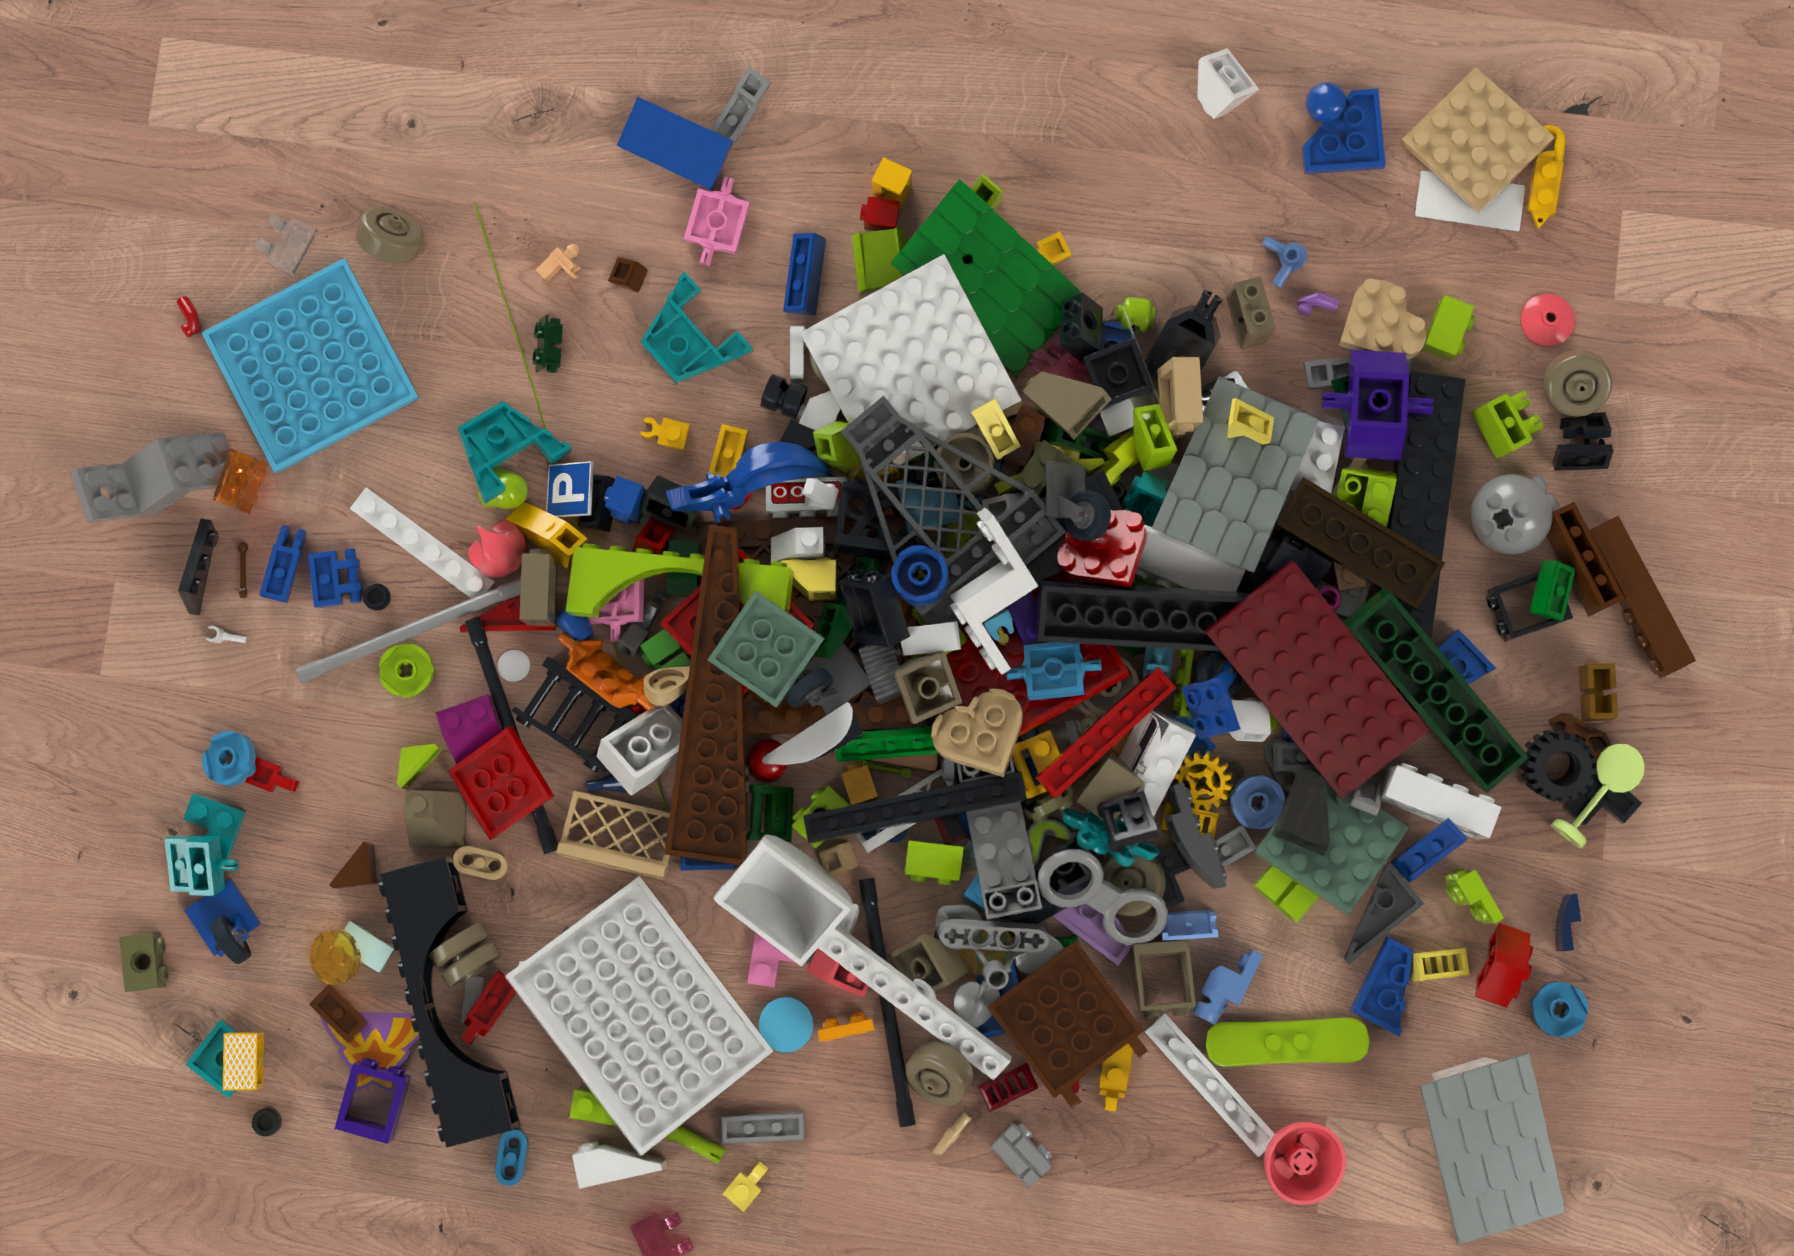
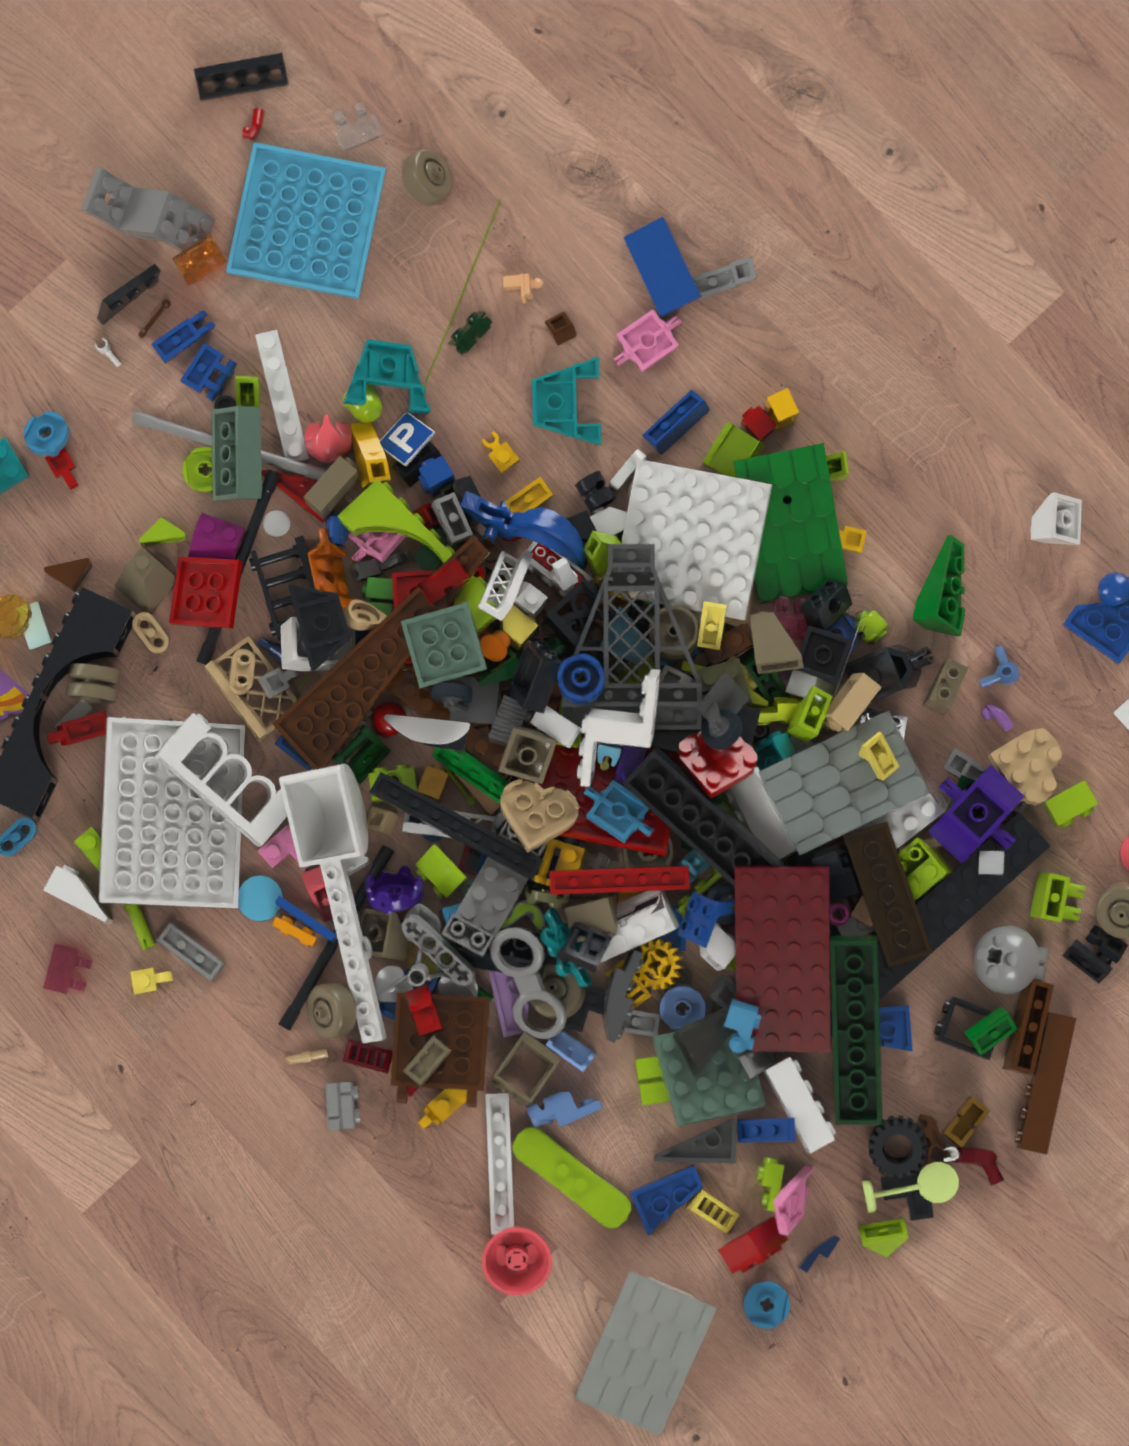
camera: 35 degrees right, 0 degrees up
(135, 273) = (241, 68): none -> black fence
(389, 570) = (247, 391): none -> lime slope
(423, 631) = (236, 453): none -> sand green slope
(594, 827) = (241, 670): none -> tan plate
(595, 944) = (179, 746): none -> white fence
(631, 723) = (320, 623): none -> black wing
(635, 811) = (276, 681): none -> light grey plate
(674, 527) = (451, 519): none -> light grey brick
(712, 599) = (450, 575): none -> red piece
(781, 547) = (509, 588): none -> white fence
(812, 610) = (495, 645): none -> orange piece
(846, 1009) = (306, 919): none -> blue tile
(906, 914) = (394, 891): none -> dark purple plate
(1026, 1003) = (423, 1010): none -> red slope
(1070, 1047) = (427, 1061): none -> dark tan plate
(1175, 238) = (939, 600): none -> green wedge
(1327, 766) = (742, 1018): none -> dark azure brick
(1428, 437) = (991, 862): none -> light grey slope
(1506, 894) = (792, 1200): none -> bright pink wing
(1611, 857) = (884, 1236): none -> lime slope
(1636, 713) = (979, 1157): none -> dark red arm

